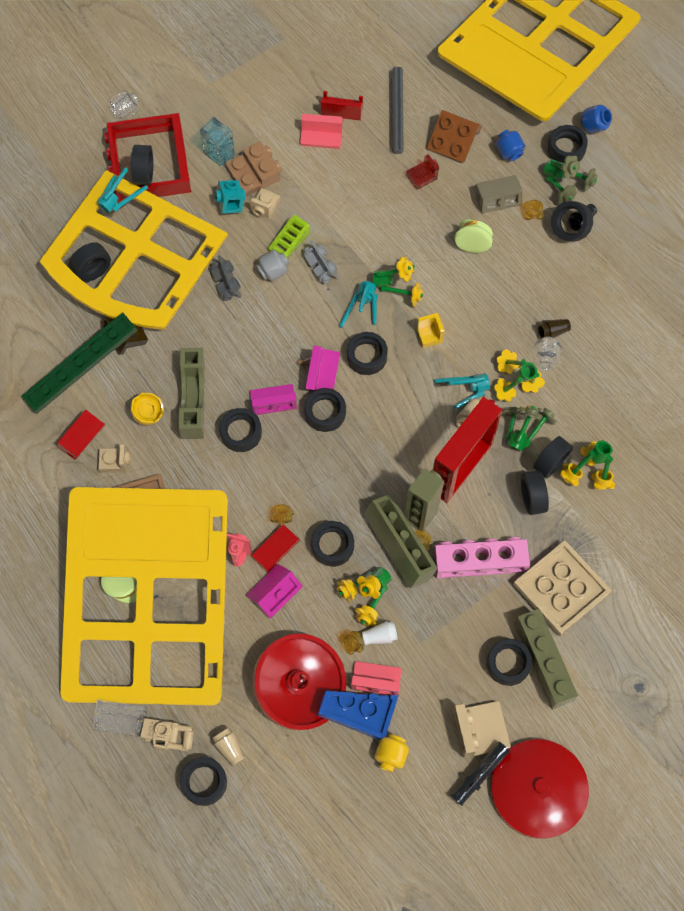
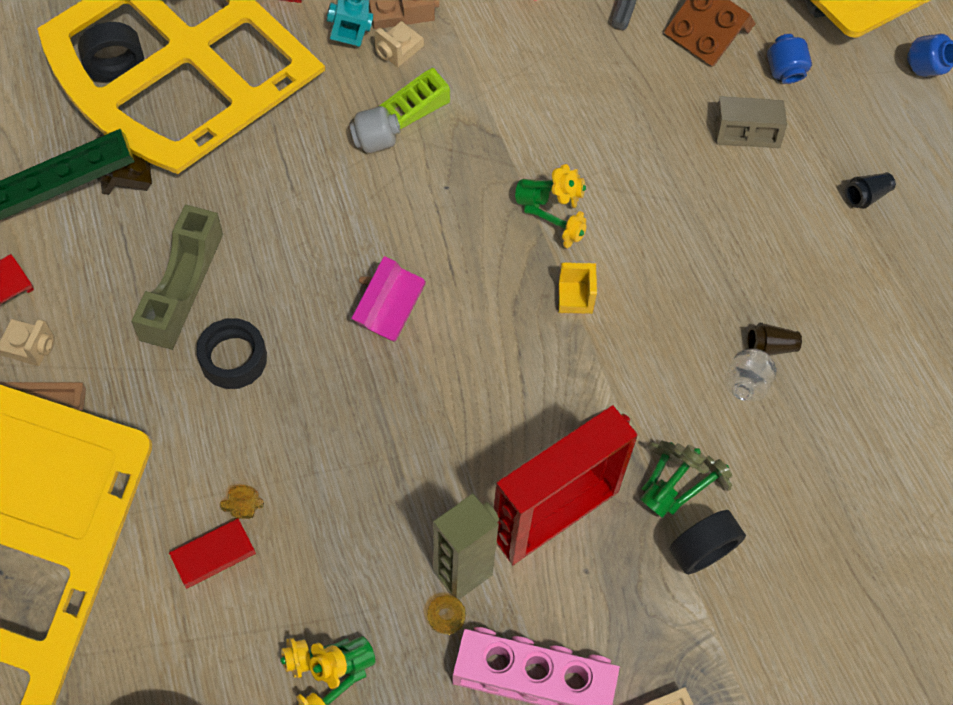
camera: 15 degrees right, 5 degrees down
(147, 409) = (103, 280): yellow hair -> none
(223, 271) = (301, 119): dark grey hinge -> none
(238, 548) = (146, 536): coral hinge -> none
(273, 399) = (300, 323): dark pink panel -> none
(274, 590) = (182, 622): dark pink panel -> none
(316, 255) = (446, 134): light grey hinge -> none
(322, 394) = (365, 337): black tyre -> none
(332, 526) = (293, 547): black tyre -> none
(365, 295) = (496, 209): teal plant -> none
(367, 338) = (466, 318): black tyre -> none
(400, 541) = (411, 605): olive brick -> none
(423, 173) = (647, 64): clear red bracket -> none
(474, 236) = (690, 170): yellowish green piece -> none
(477, 383) = (624, 389): teal plant -> none
(526, 374) = (703, 393): yellow plant -> none
(533, 205) = (799, 152): clear yellow plate -> none
(534, 492) = (658, 592): black tyre -> none
(557, 215) = (830, 176): black tyre -> none
(558, 170) = (851, 111): plant -> none
(571, 132) = (884, 64): black tyre -> none
(594, 453) = (780, 557): plant -> none

